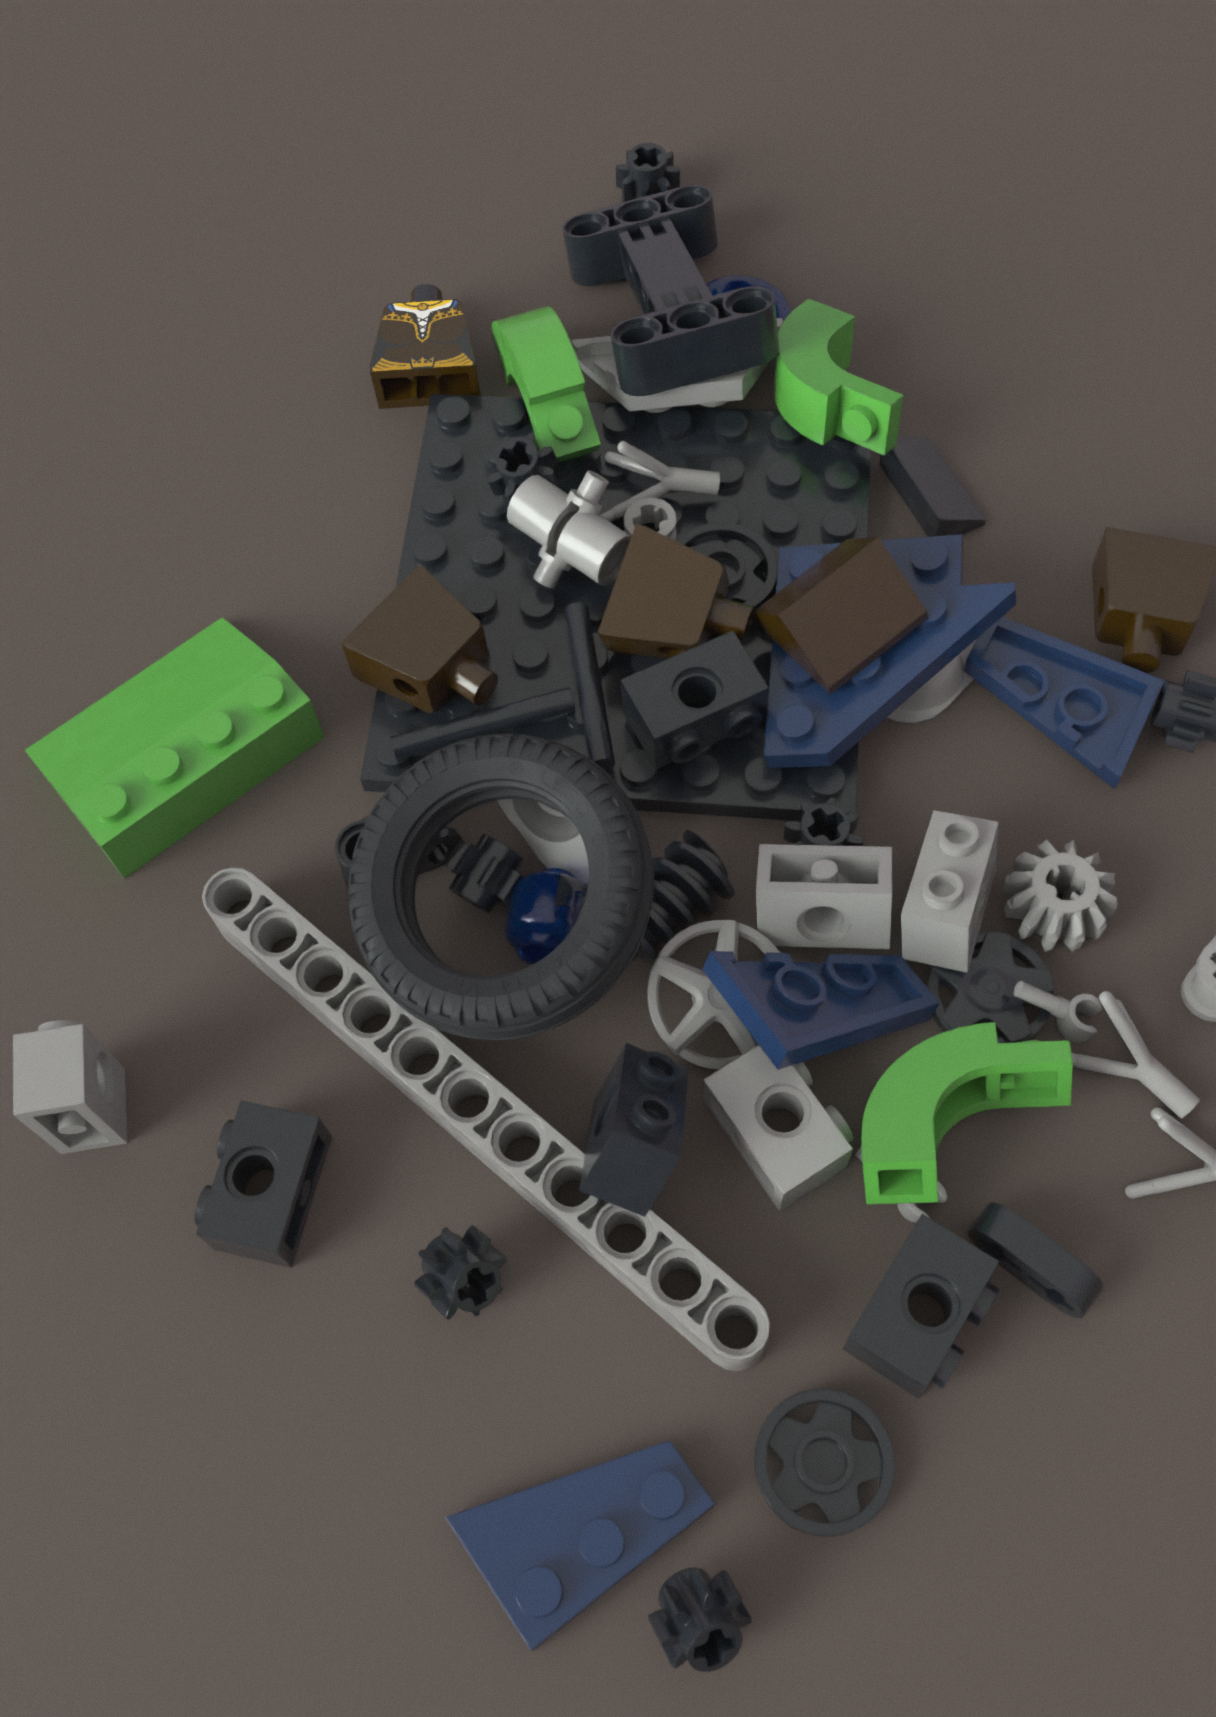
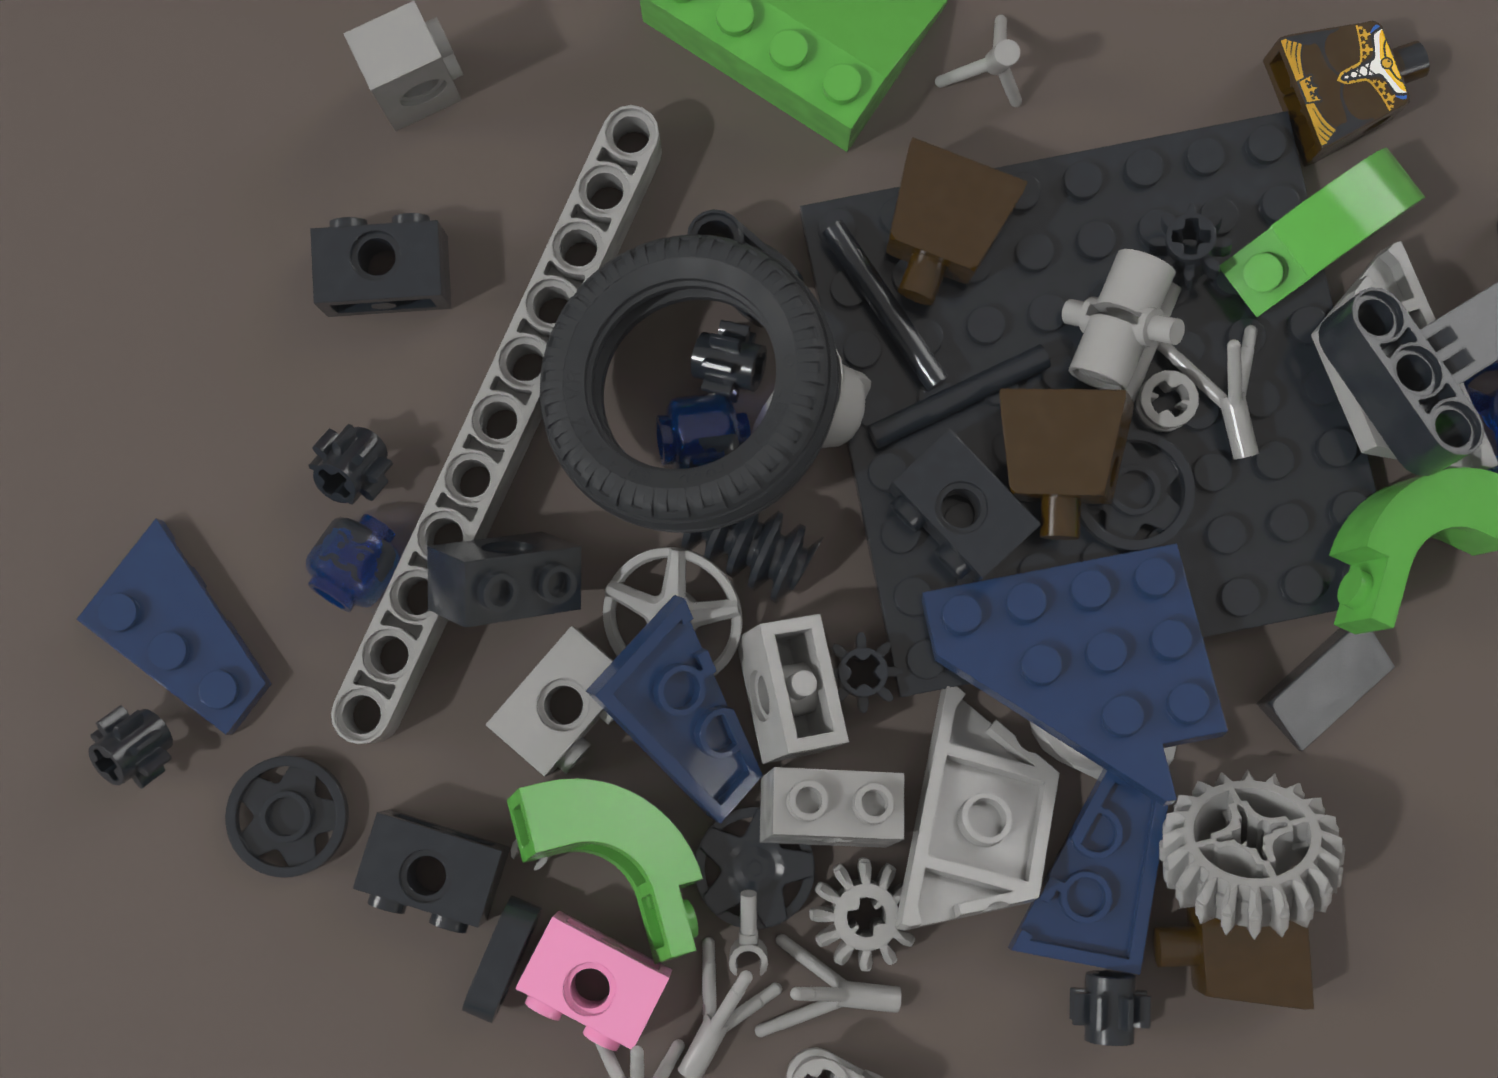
camera: 70 degrees right, 20 degrees up
(298, 575) = (996, 62): none -> light grey plant
(566, 1301) = (352, 562): none -> clear blue head
(842, 612) = (1091, 626): dark brown slope -> none
(992, 770) = (977, 821): none -> light grey wing
(1075, 555) = (1234, 852): none -> light grey gear
(1091, 1131) = (632, 979): none -> bright pink brick
(1134, 942) = (840, 994): none -> light grey plant

